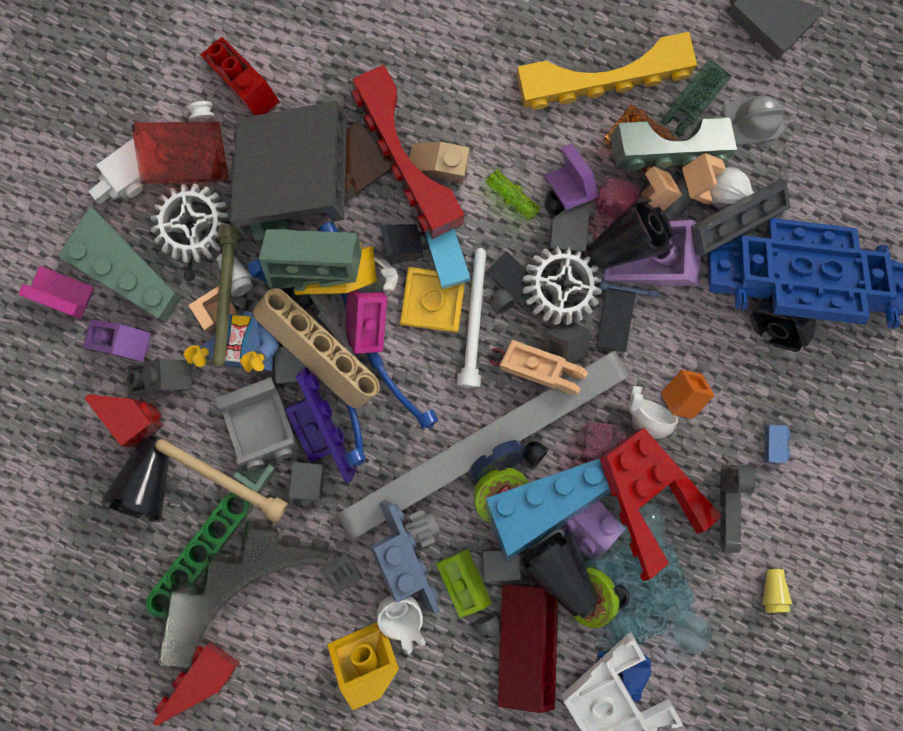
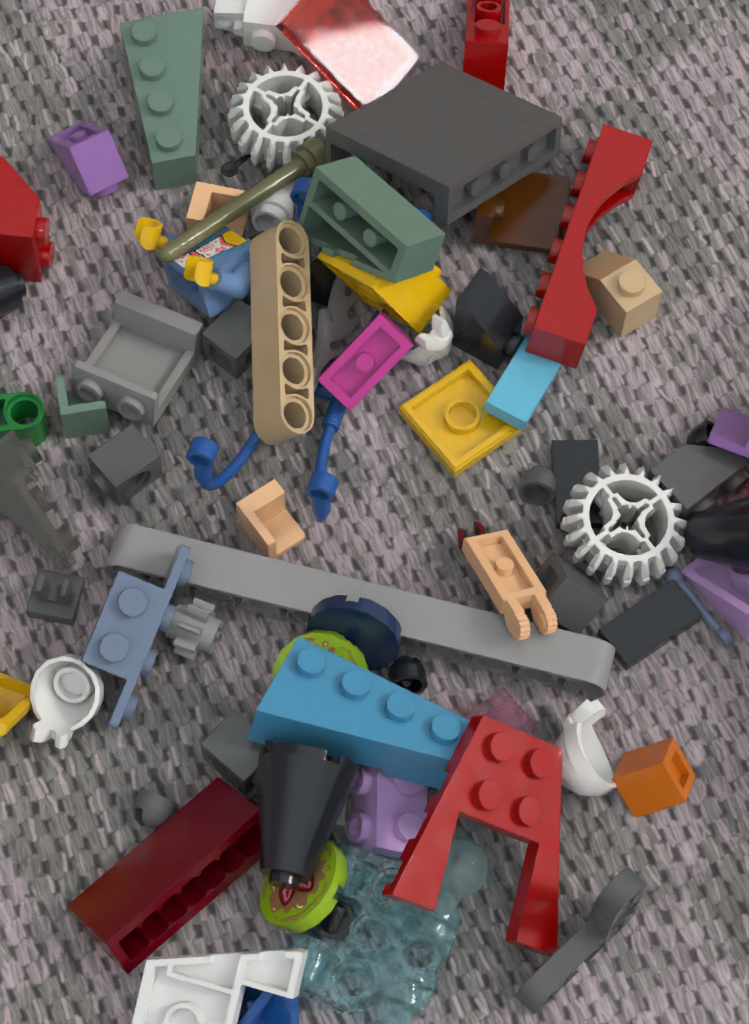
camera: 45 degrees right, 20 degrees down
(58, 292) = (80, 67): dark pink panel -> none
(159, 377) = (91, 227): dark grey slope -> none
(200, 111) = (412, 29): white bush -> none
(270, 507) = (58, 445): tan piece -> none
(315, 427) = (197, 410): dark purple bracket -> none
(401, 441) = (267, 520): none -> light nougat panel
(464, 583) = (176, 739): lime slope -> none
(469, 374) = (418, 526): white piece -> none
(513, 195) = (664, 392): clear neon green pin -> none
(776, 444) = (708, 936): medium blue piece -> none

